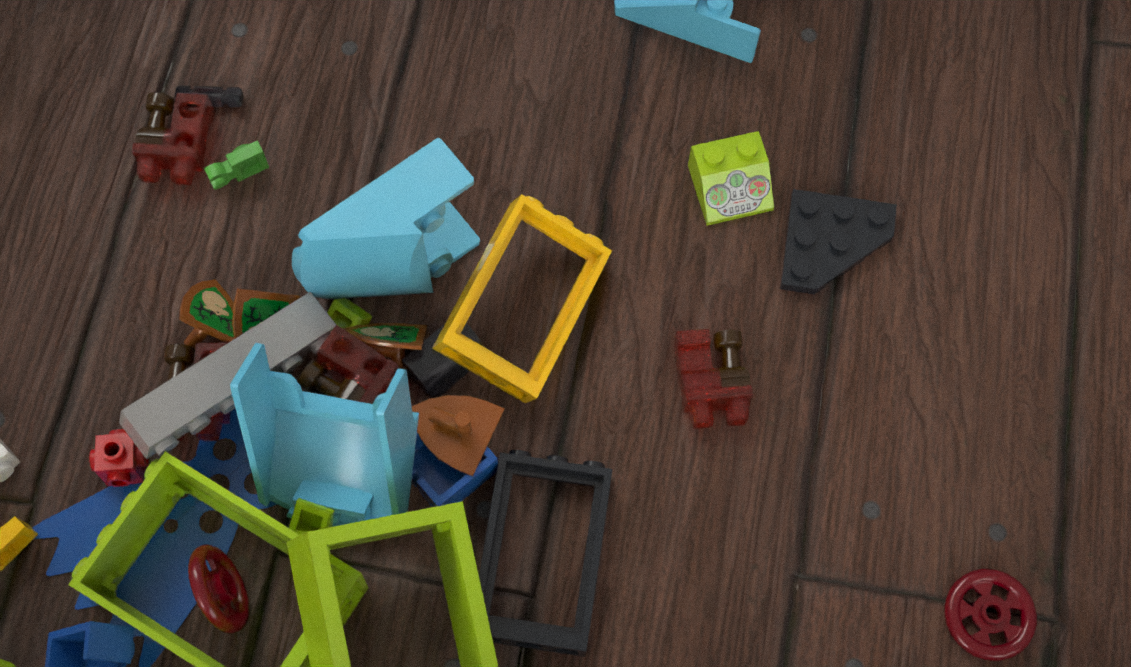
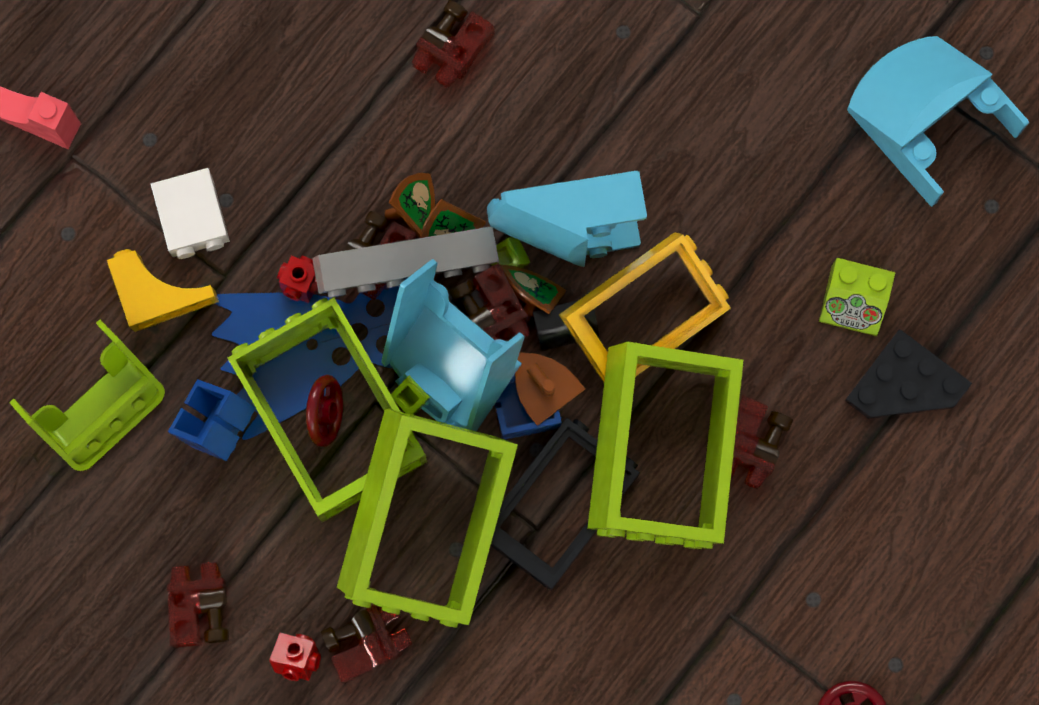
camera: 30 degrees right, 10 degrees up
(232, 96) = (500, 22): black axle -> none
(240, 164) = (494, 91): bright green plate -> none
(568, 444) = (614, 436): none -> lime door

